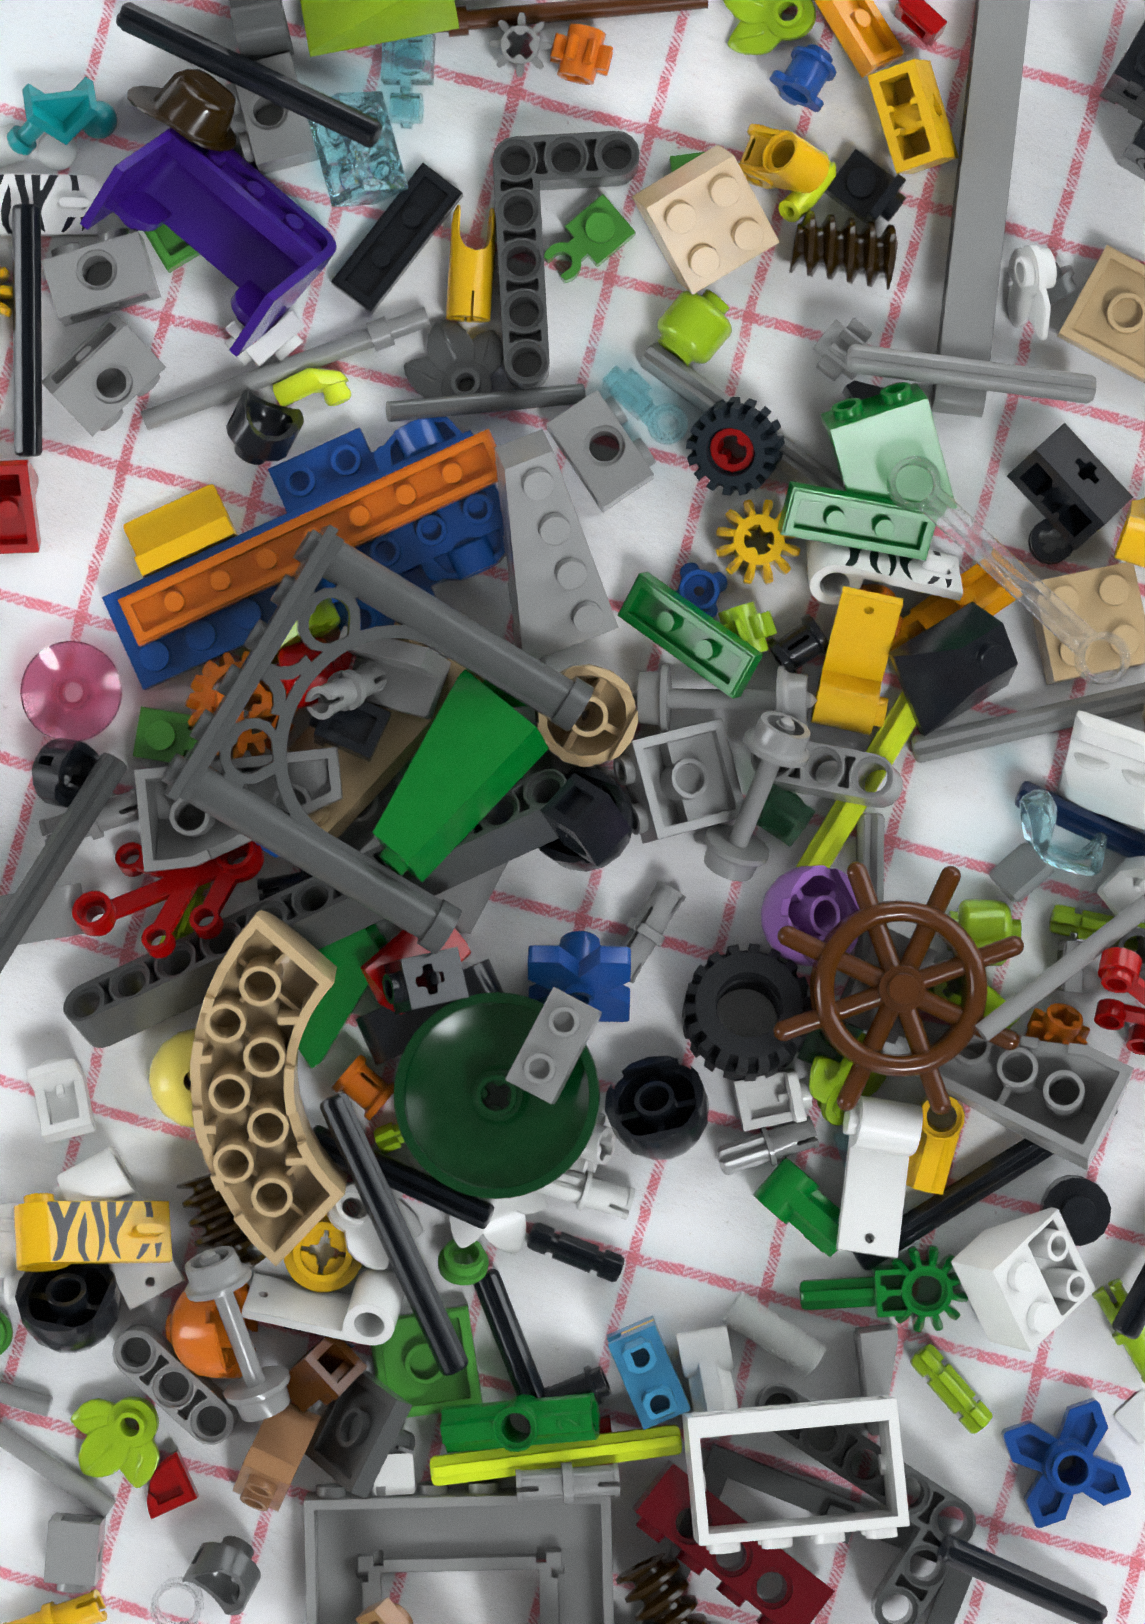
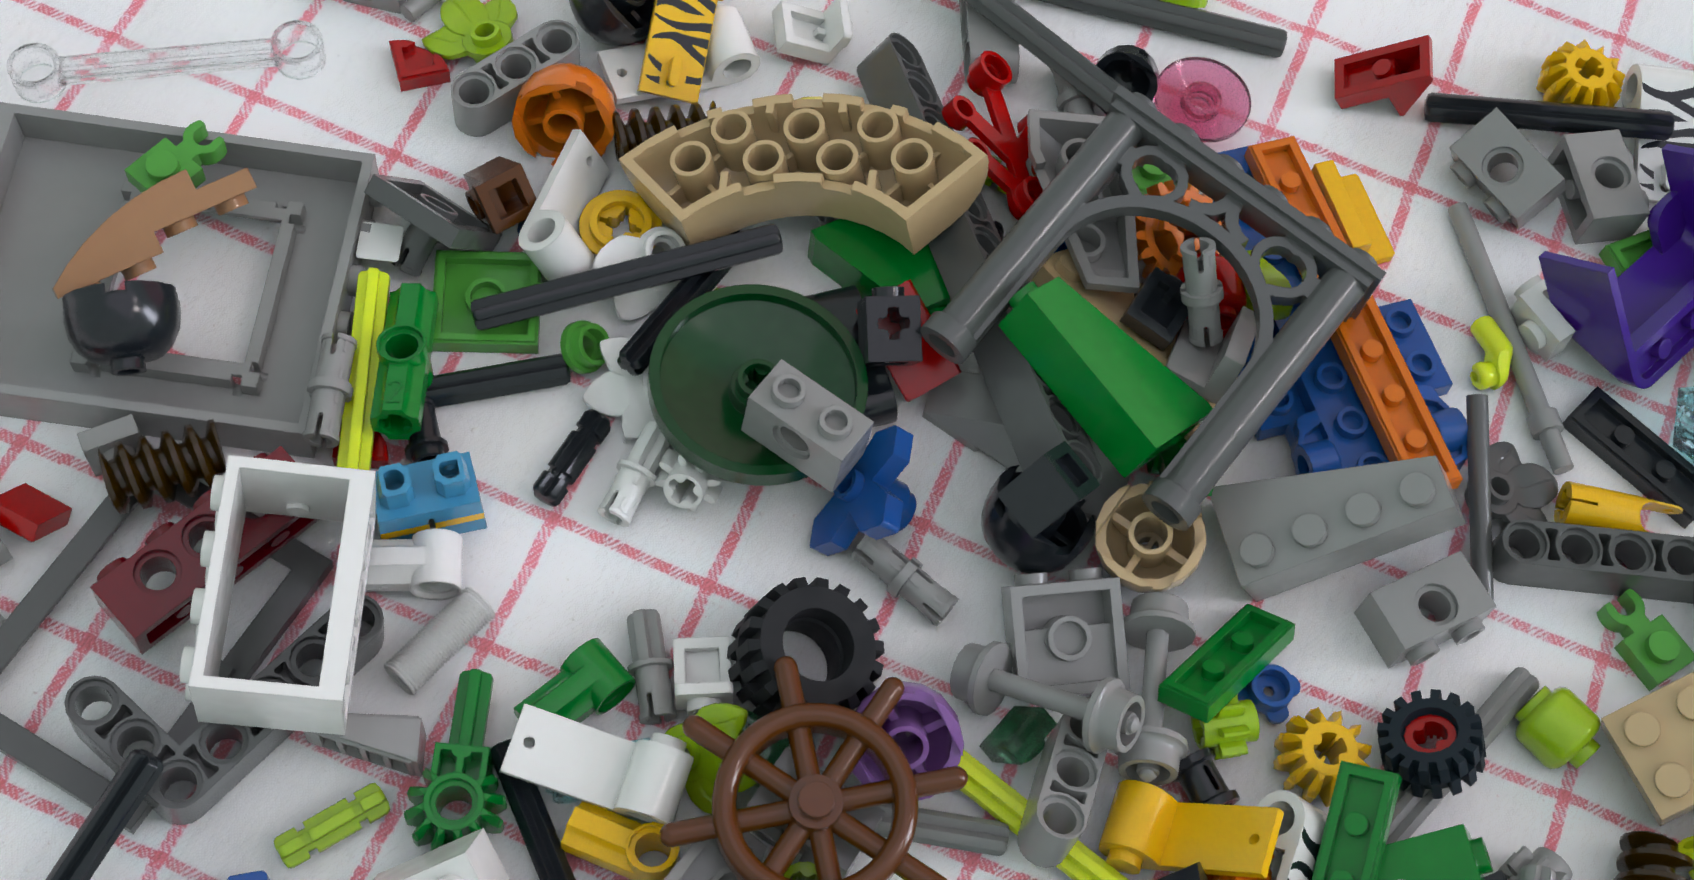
camera: 85 degrees right, 25 degrees down
(225, 1573) = (322, 87): dark grey piece -> none
(260, 1390) = (494, 128): light grey piece -> none
(262, 429) = (1453, 294): black piece -> none
(275, 1458) = (427, 143): medium nougat pin -> none
(364, 1087) = (789, 275): orange bush -> none
(631, 392) = (1487, 650): clear light blue plate -> none
(658, 1108) = (713, 547): black cylinder -> none

